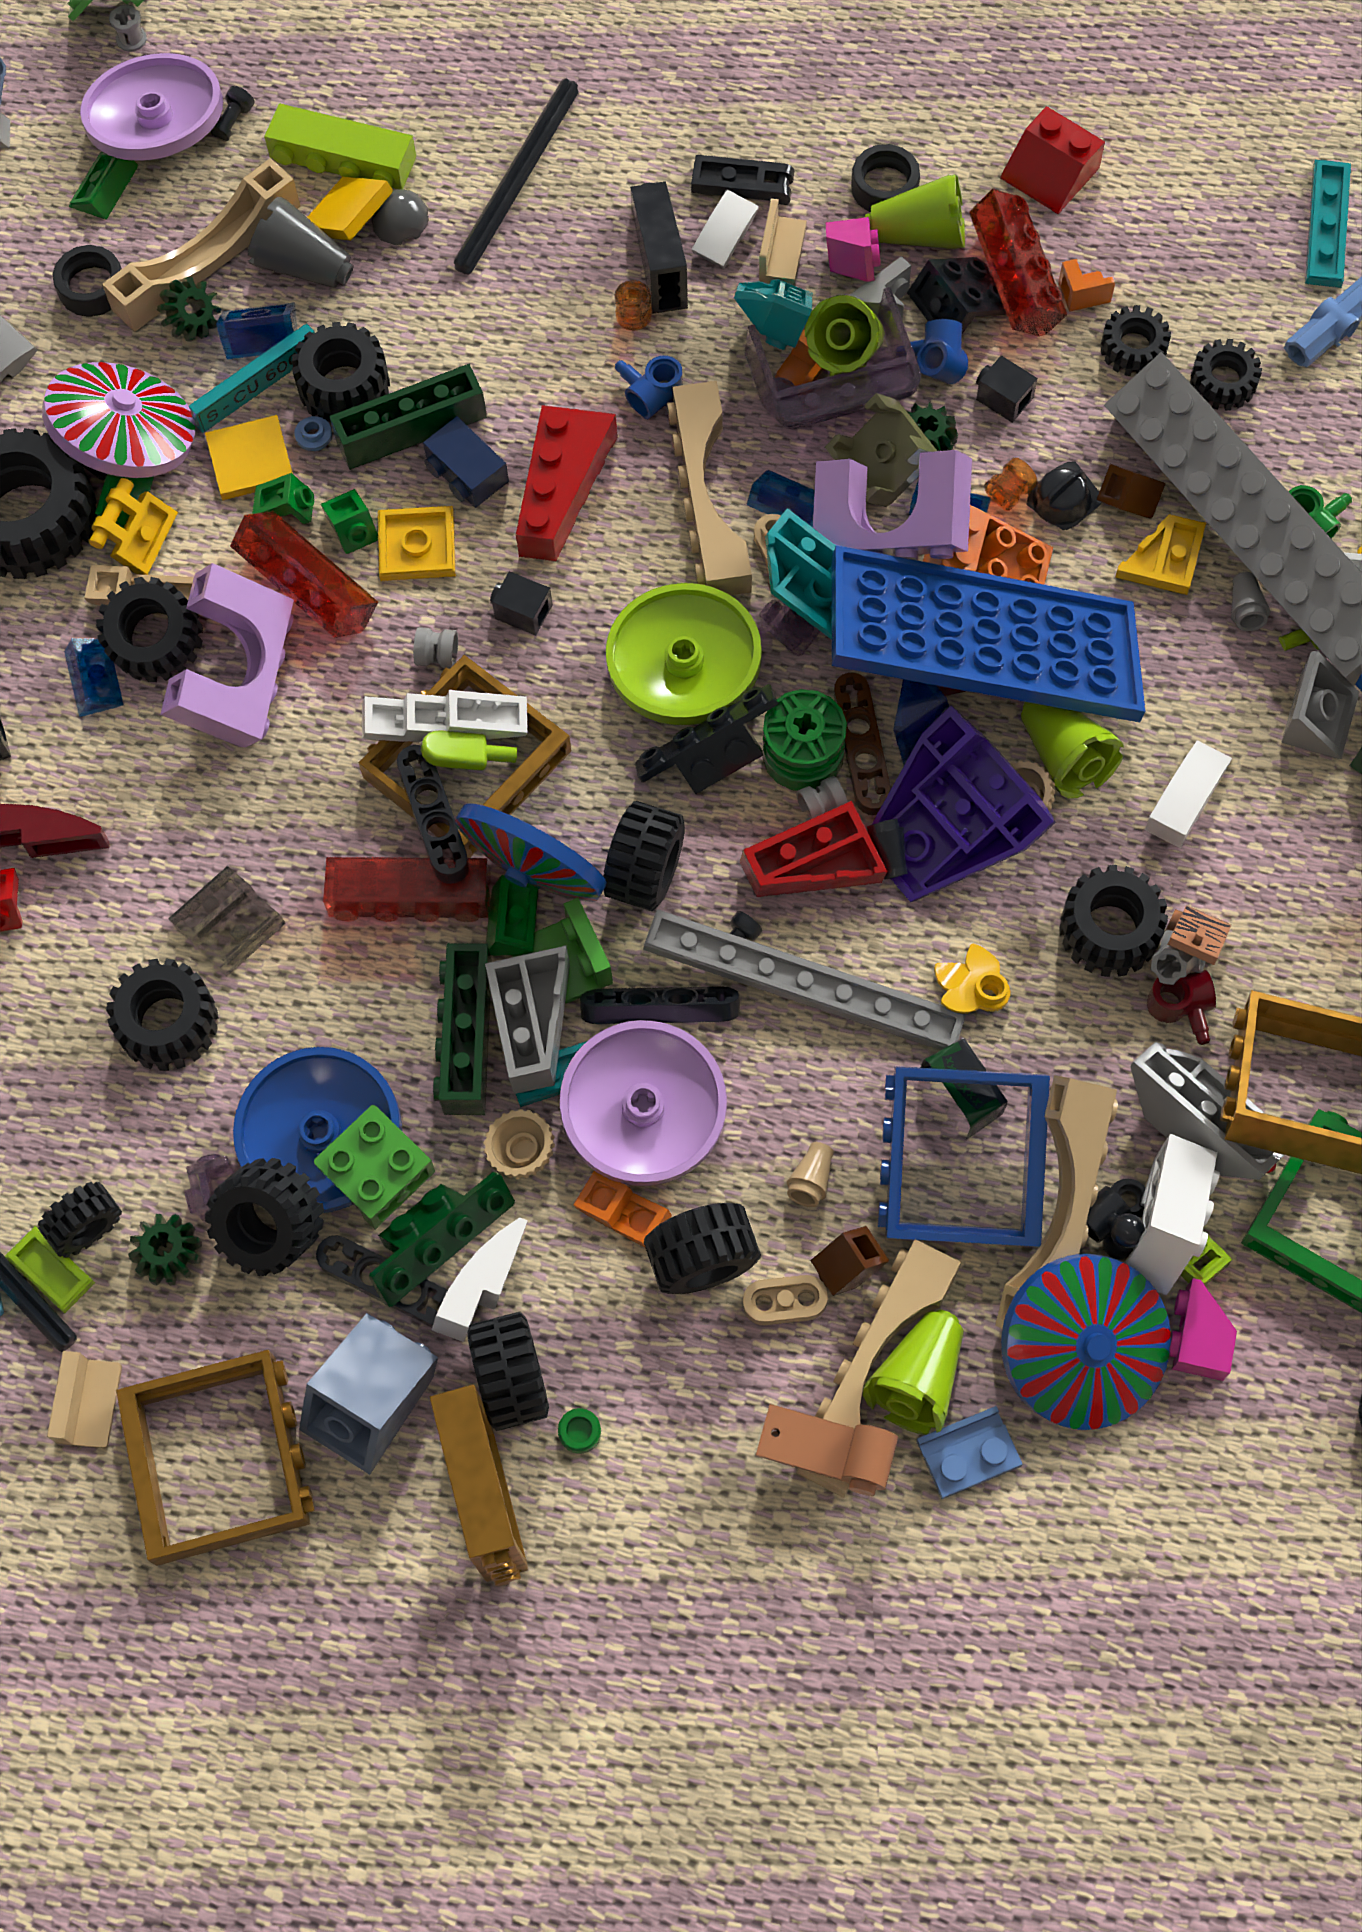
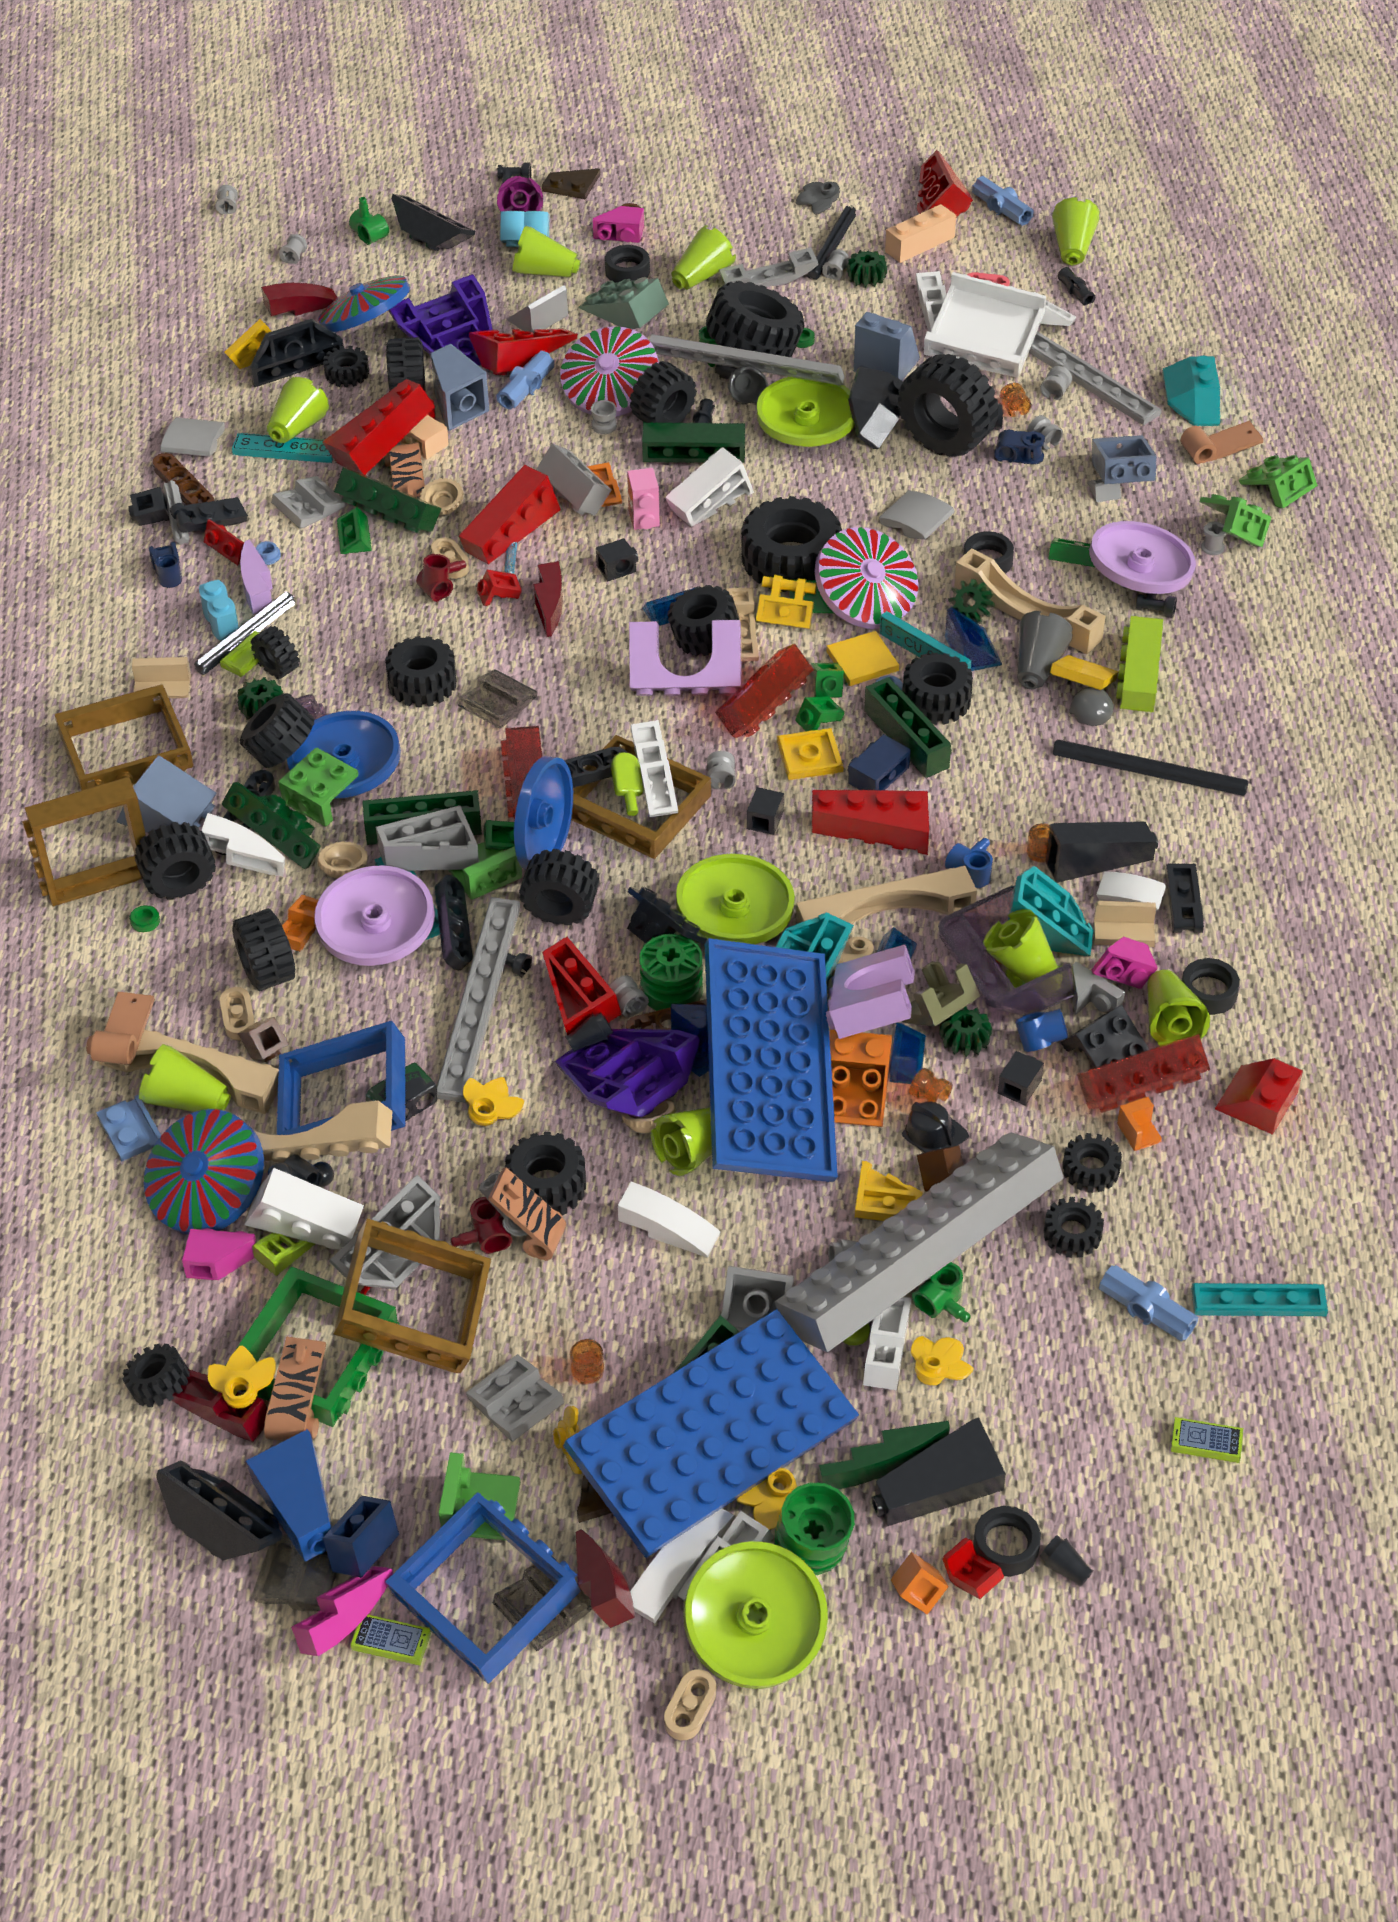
camera: 80 degrees right, 20 degrees down
(810, 1178) = (329, 1018): tan cone -> none

